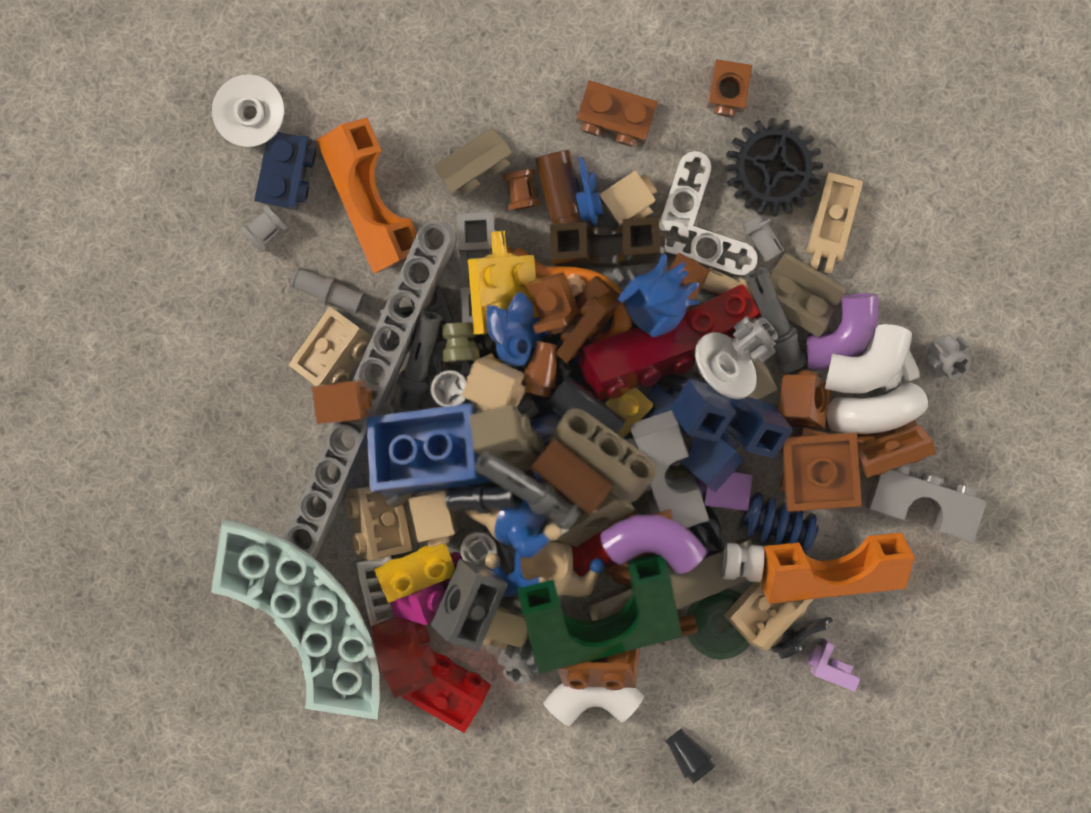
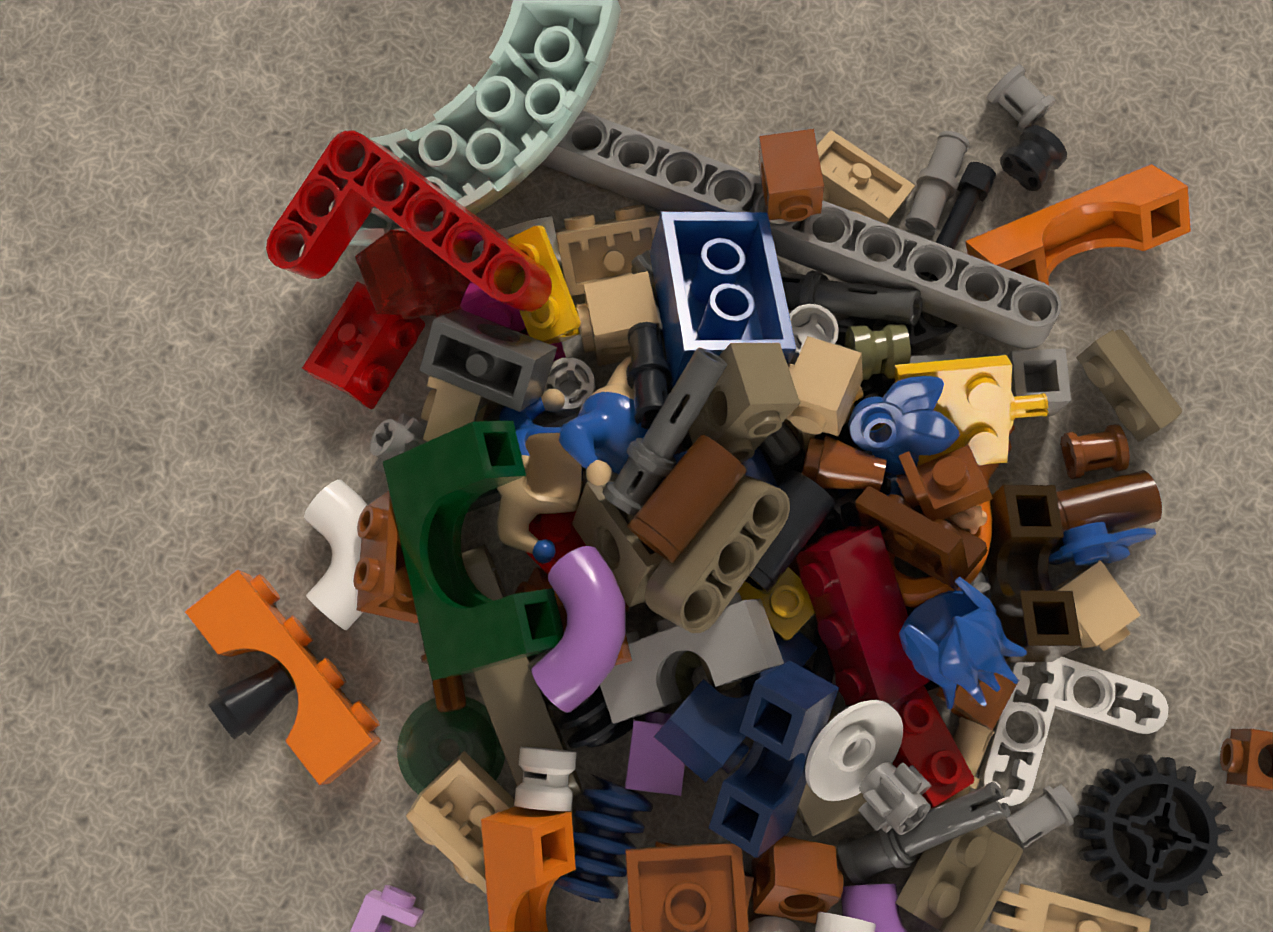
camera: 90 degrees right, 10 degrees down
(240, 94) = (1194, 61): white dish -> none
(284, 171) = (1104, 128): dark blue bracket -> none
(309, 221) = (1034, 157): none -> black wheel
(327, 262) = (973, 188): none -> black bar
(371, 659) = (415, 209): none -> red beam
(616, 113) = (1213, 591): dark orange bracket -> none
(707, 704) = (328, 728): none -> orange arch
(793, 641) = (420, 862): black plate -> none

